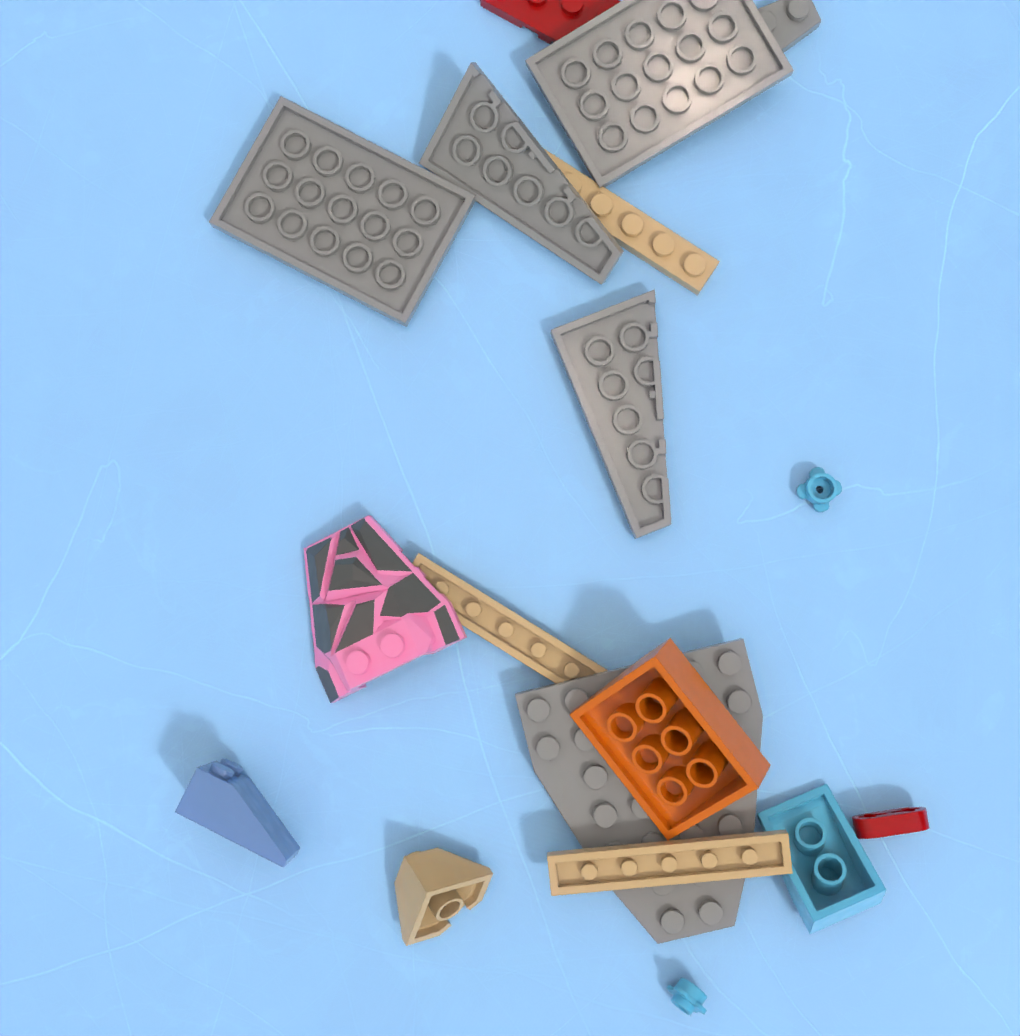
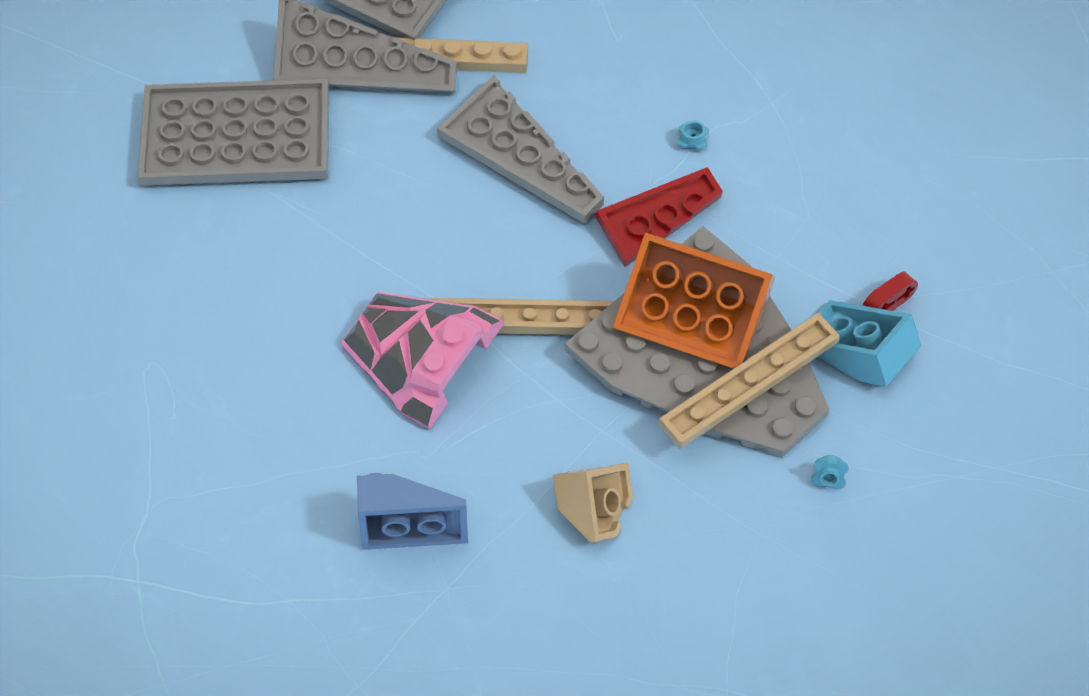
camera: 30 degrees left, 30 degrees down
(710, 573) = (657, 211): none -> red wing

